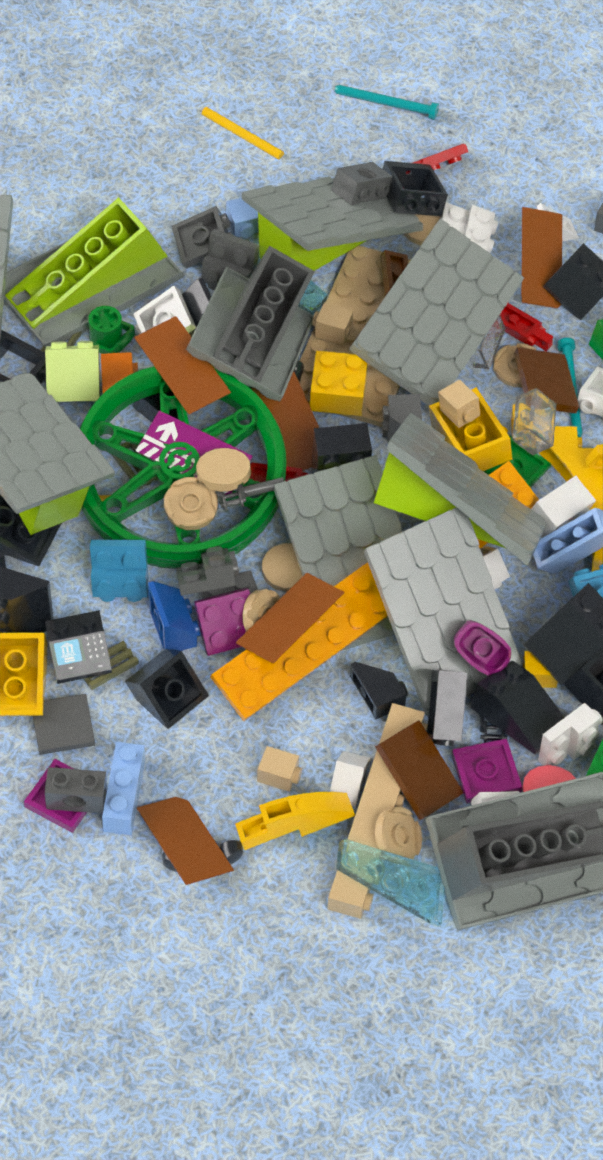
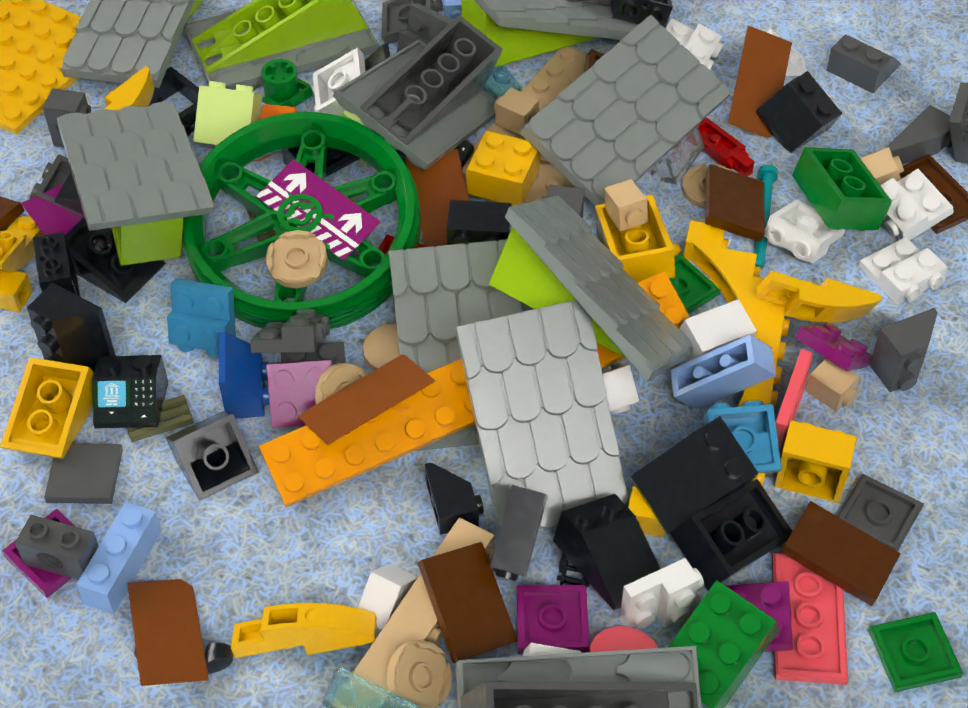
camera: 15 degrees right, 5 degrees down
(190, 379) = (330, 128): dark orange sticker -> none
(223, 469) = (340, 227): tan tile -> none
(247, 491) = (356, 255): dark grey piece -> none
(279, 769) = (305, 569): tan brick -> none
(482, 647) = (577, 471): magenta piece -> none
(534, 421) = (707, 238): clear brick -> none

